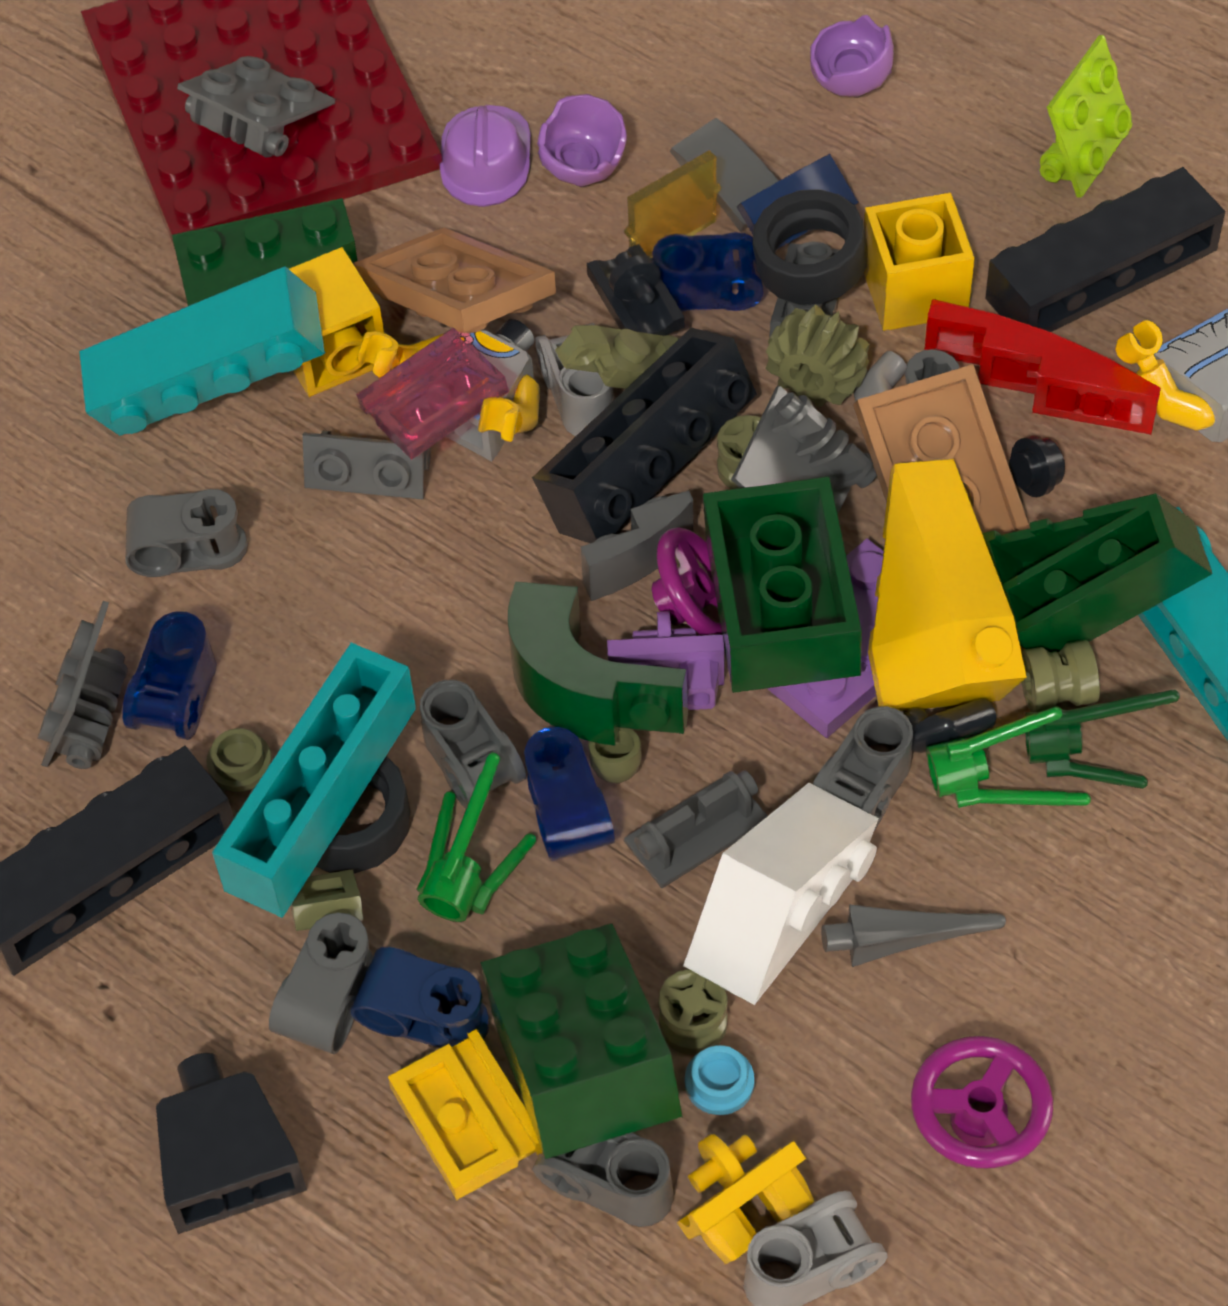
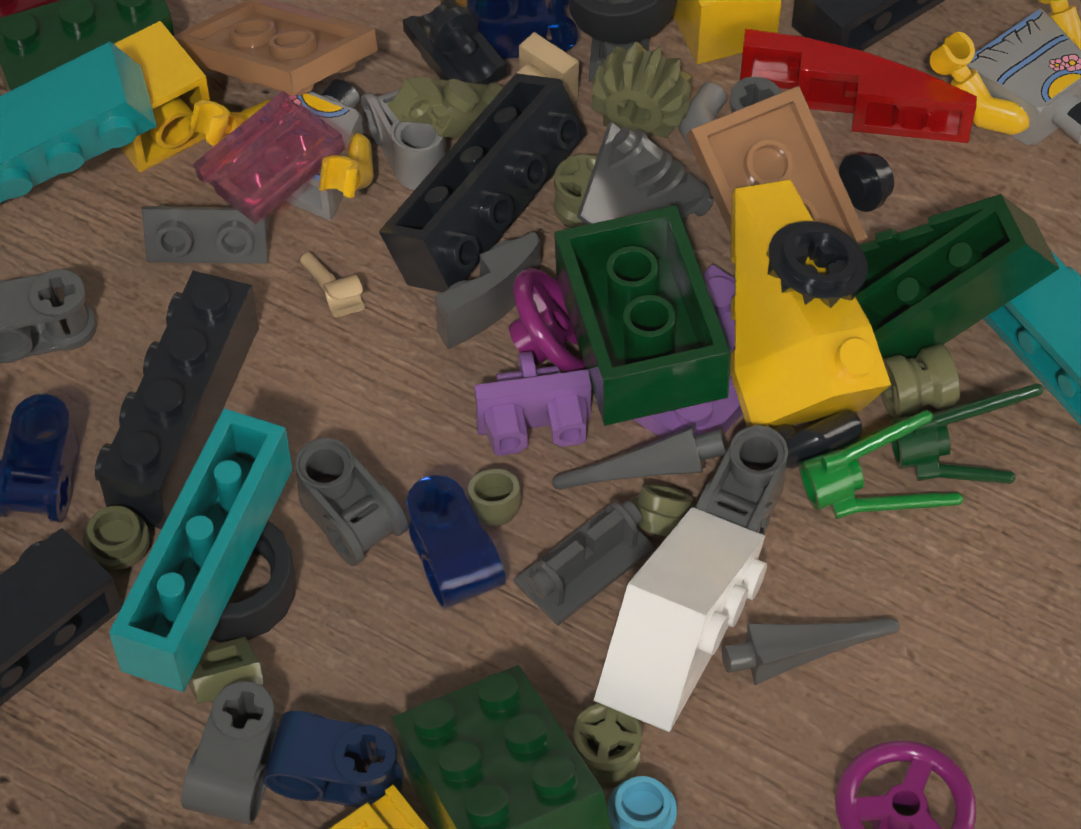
camera: 10 degrees left, 0 degrees up
(321, 613) = (178, 396): none -> black brick
(453, 883) = (349, 642): green plant -> none
(492, 537) = (341, 294): none -> tan hand
(580, 689) = (450, 434): dark green arch -> none
(726, 317) = (545, 59): none -> tan tile
(779, 779) = (661, 507): none -> olive plate
(798, 728) = (673, 454): none -> dark grey piece
(980, 534) = (828, 249): none -> black gear

